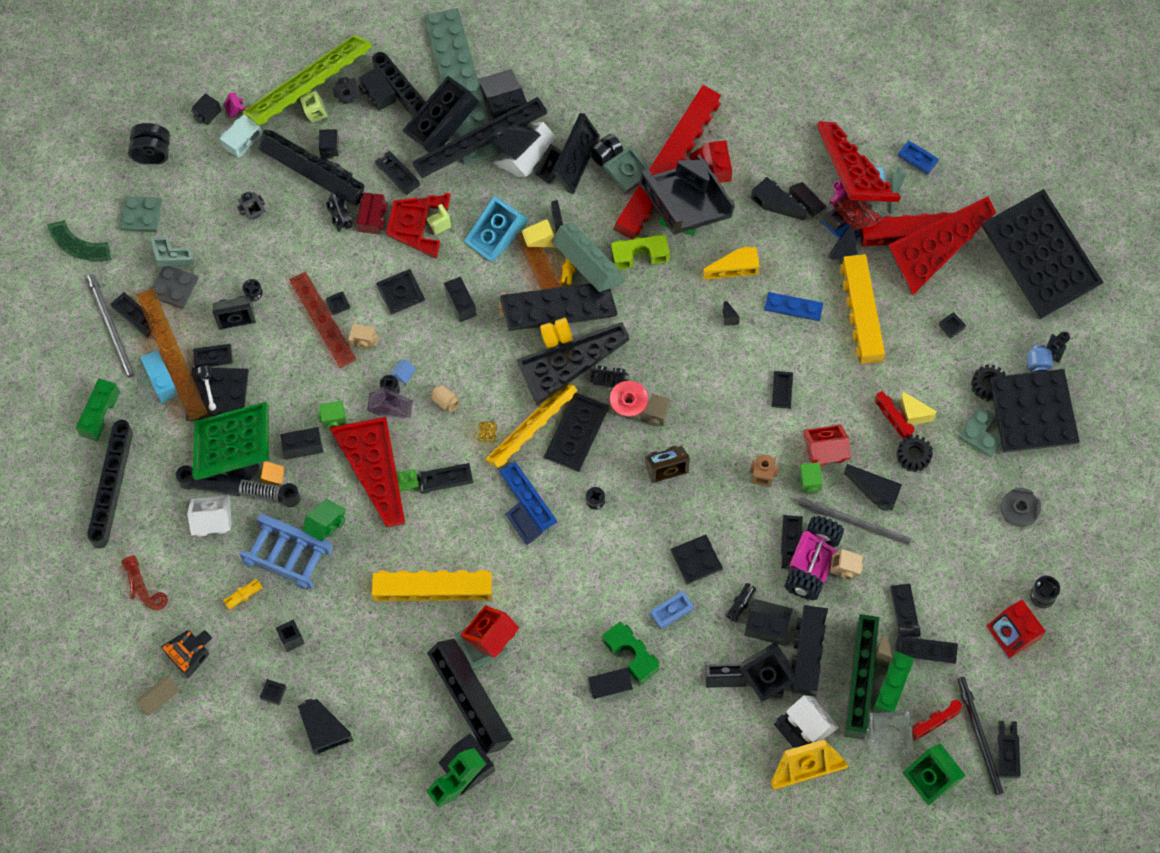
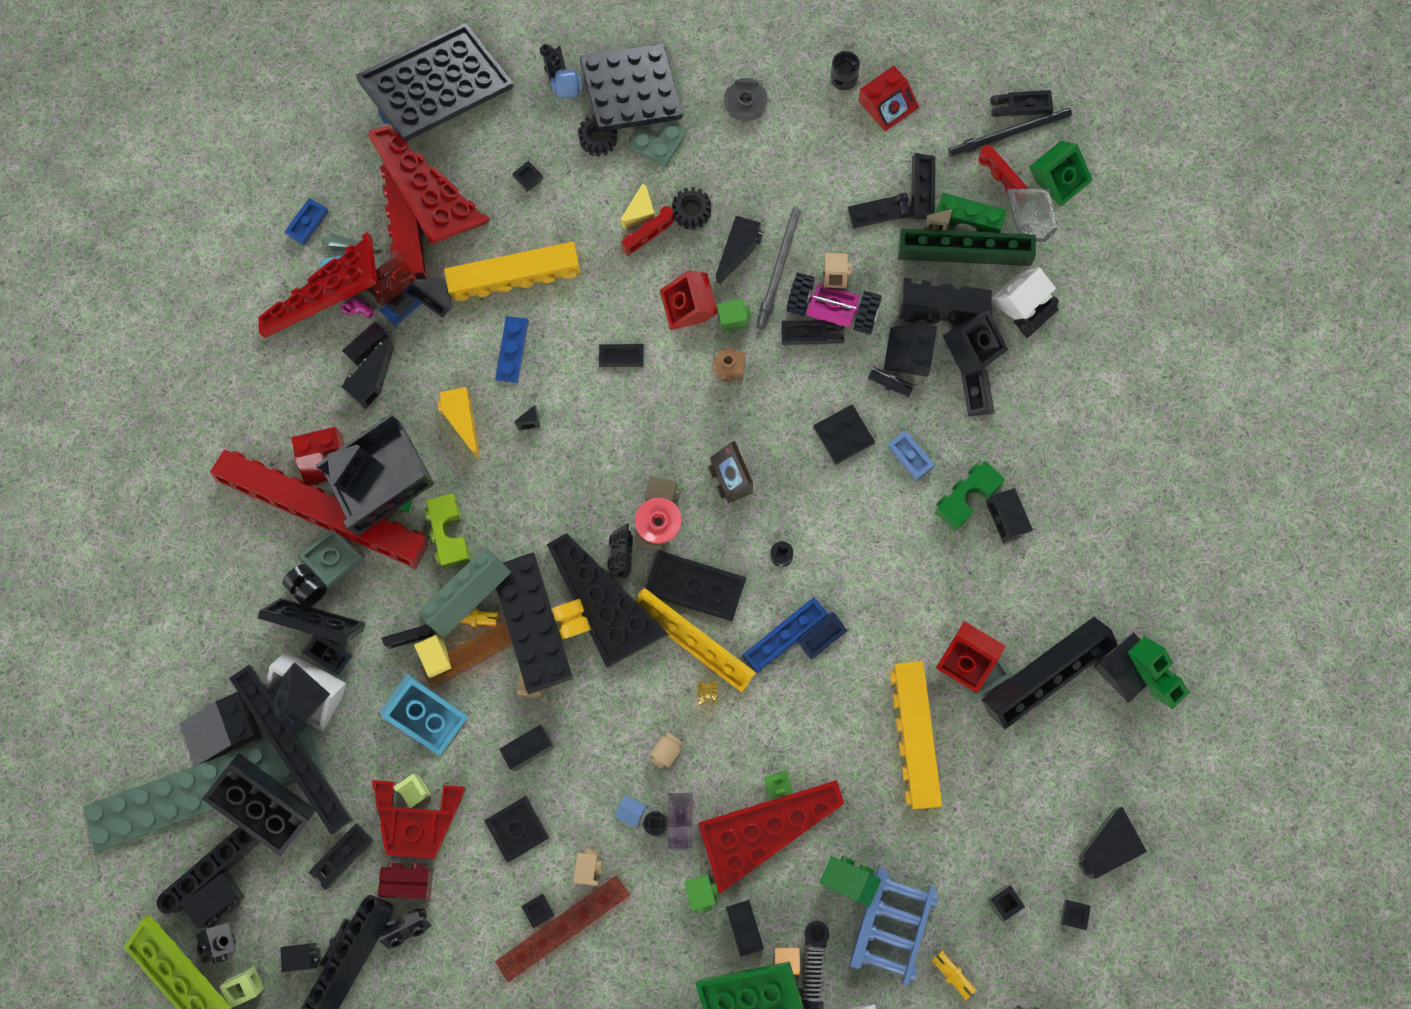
camera: 90 degrees left, 10 degrees up
(445, 478) = (772, 737): black plate -> none
(807, 763) = (1075, 301): yellow wing -> none

